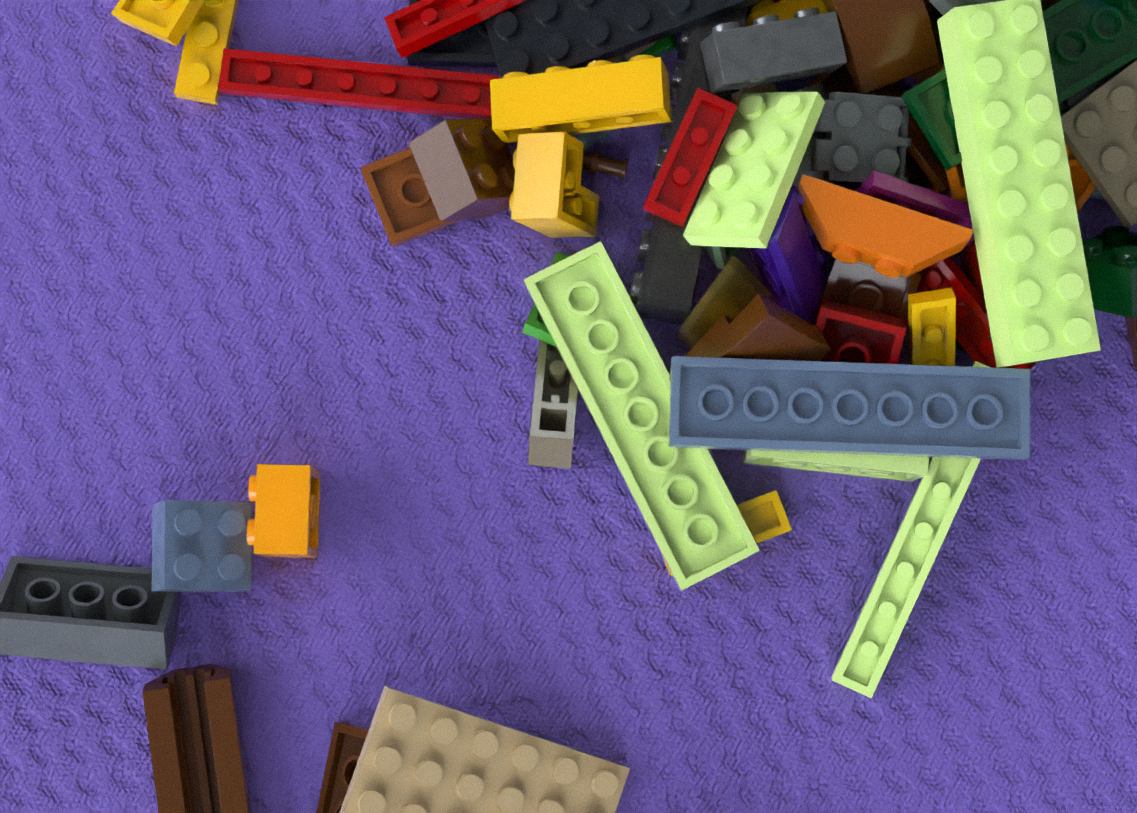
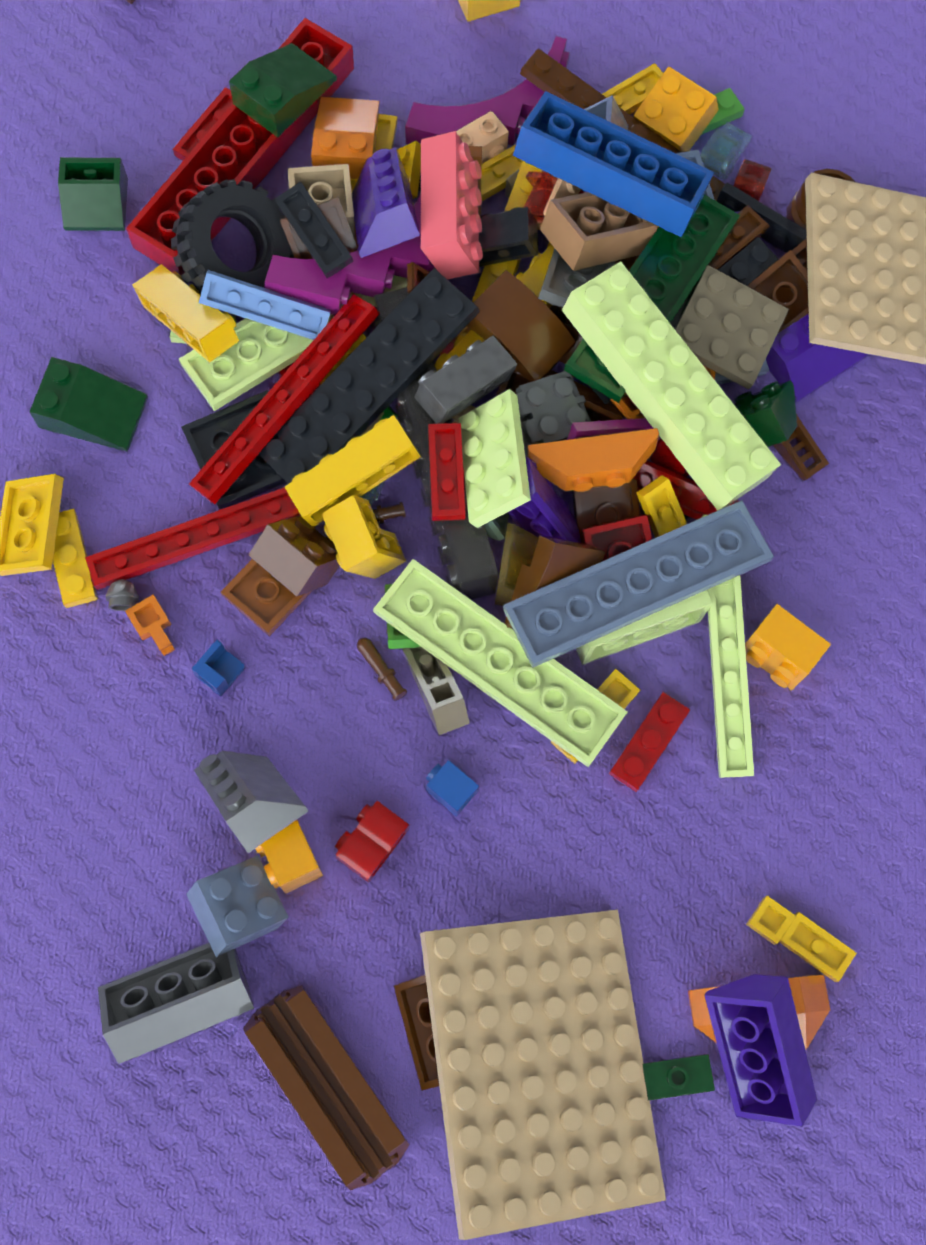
camera: 30 degrees left, 10 degrees down
(245, 115) = (121, 595): none -> flat silver plate
(263, 162) = (150, 621): none -> orange plate
(270, 432) = (249, 795): none -> dark grey slope
(314, 258) = (218, 668): none -> blue panel
(389, 548) = (371, 841): none -> red brick
(500, 337) = (377, 663): none -> reddish brown piece
(511, 531) = (451, 787): none -> blue brick
(772, 594) = (649, 741): none -> red plate
(990, 568) = (785, 648): none -> light orange brick

